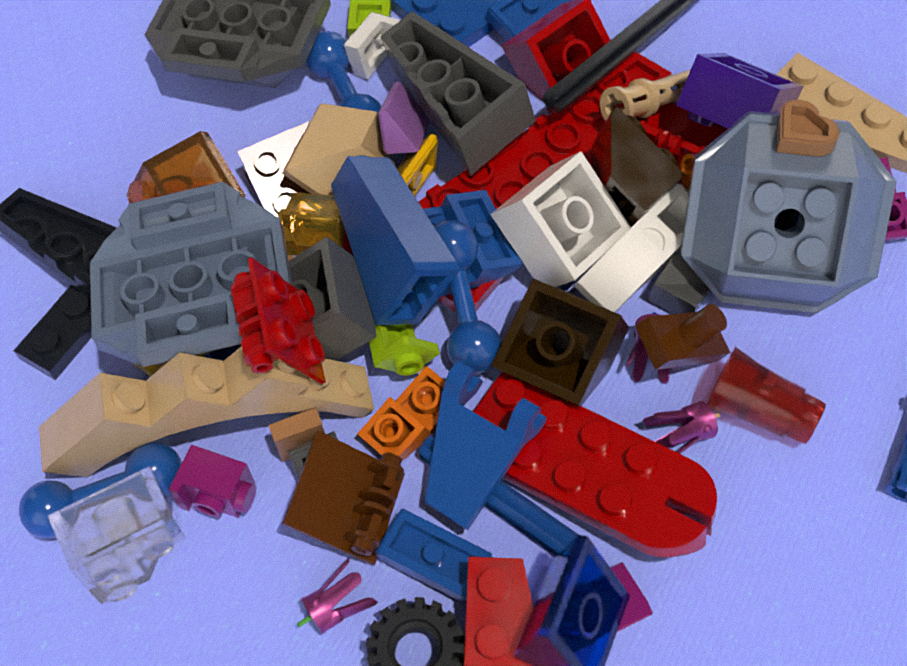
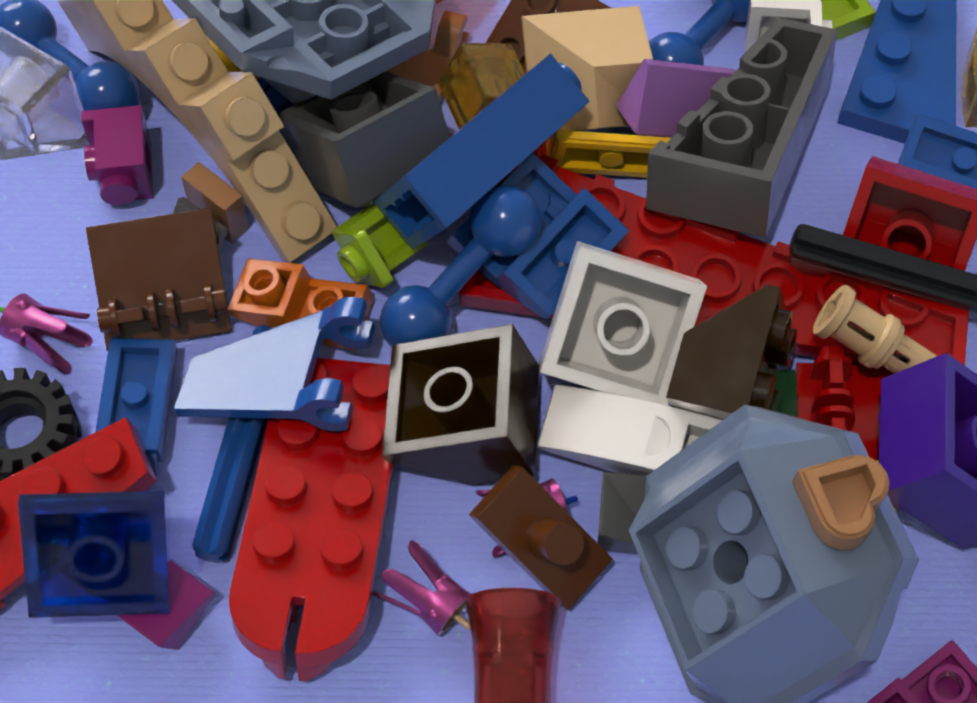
camera: 60 degrees right, 0 degrees up
(275, 322) = (274, 88): red hinge -> none

